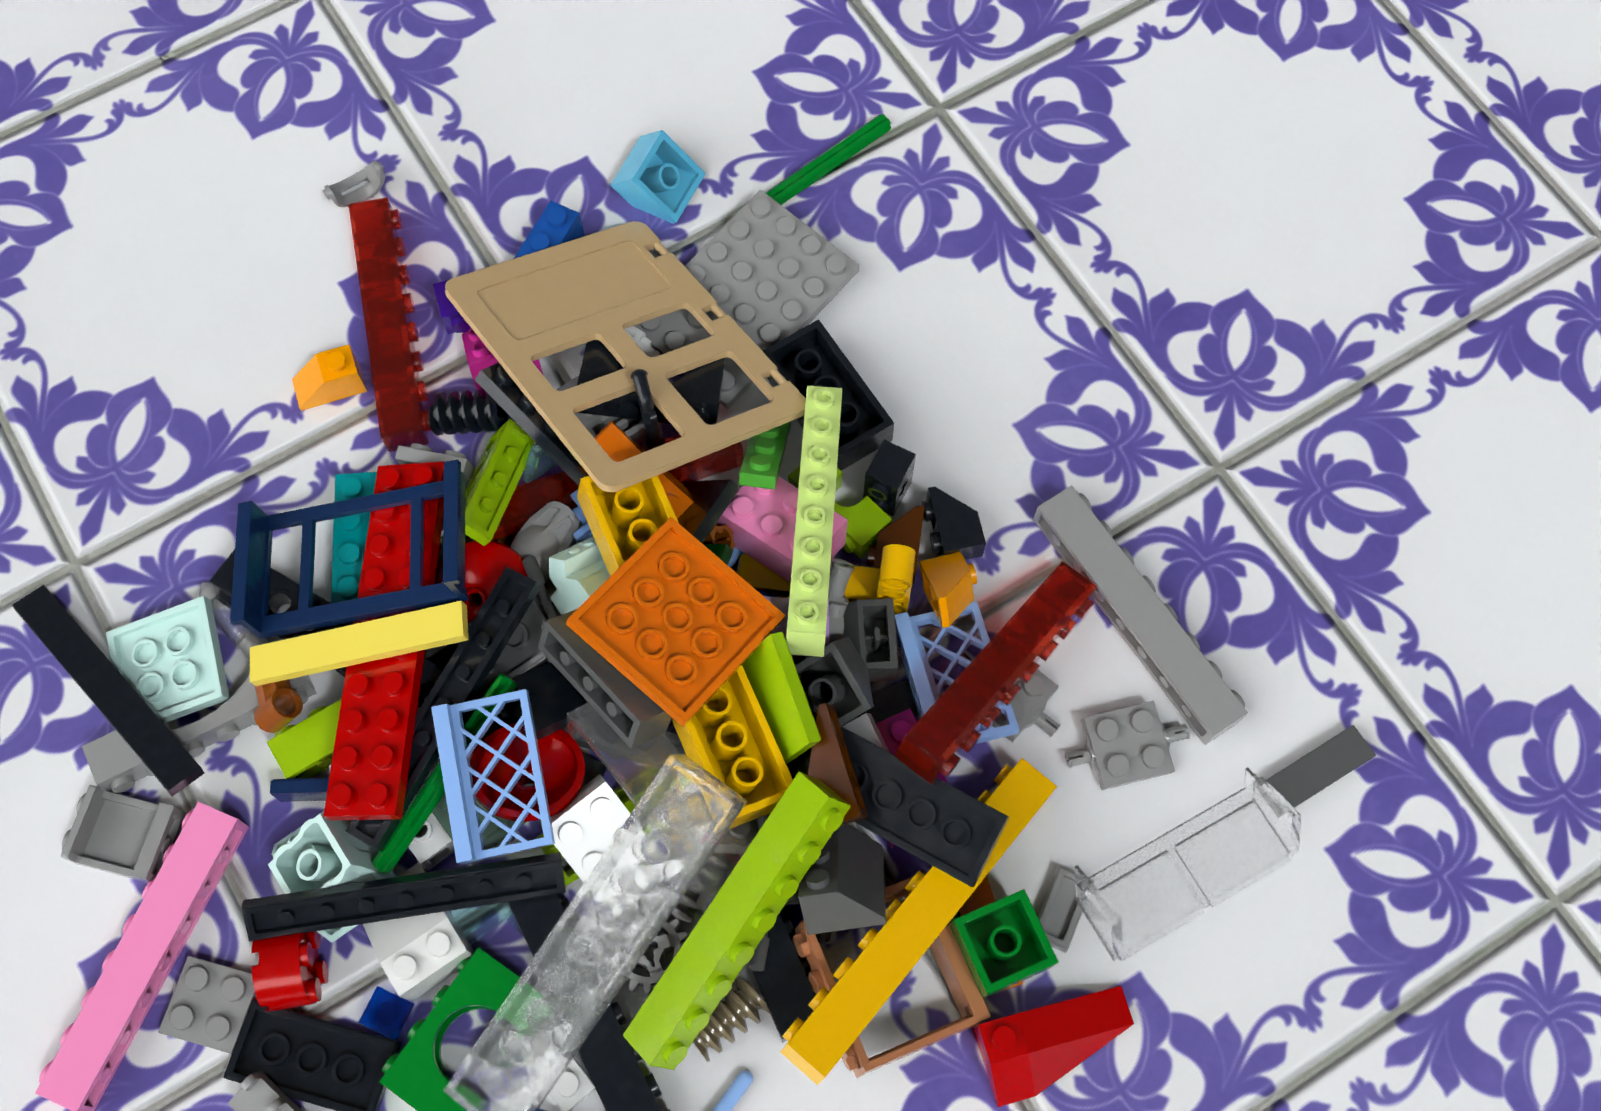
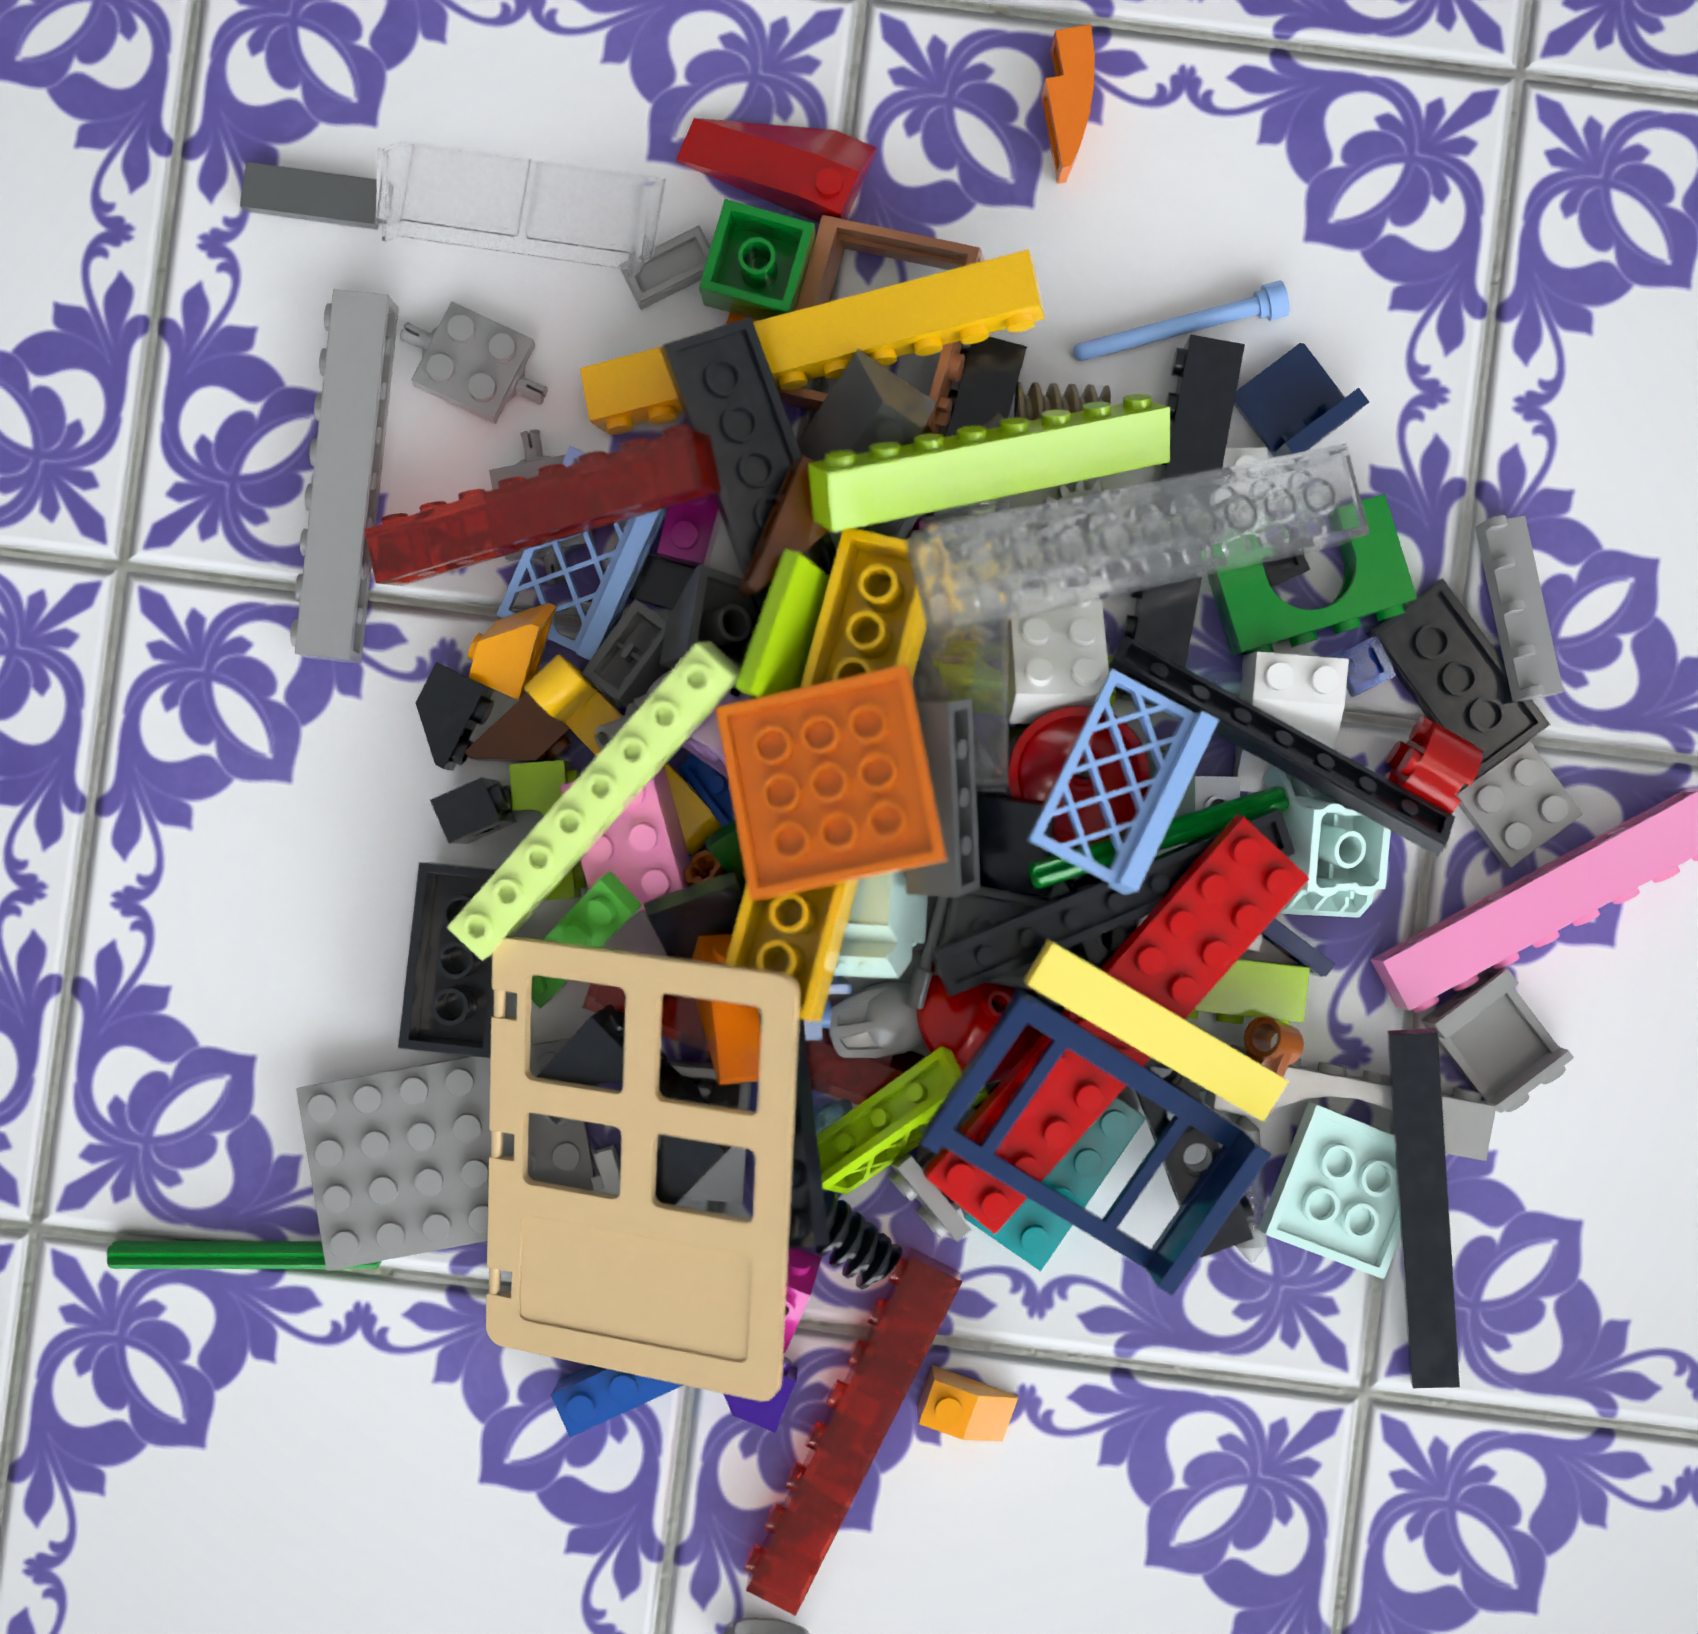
camera: 145 degrees left, 20 degrees up
(654, 437) = (681, 1044): black piece -> none
(658, 177) = (424, 1382): medium azure slope -> none

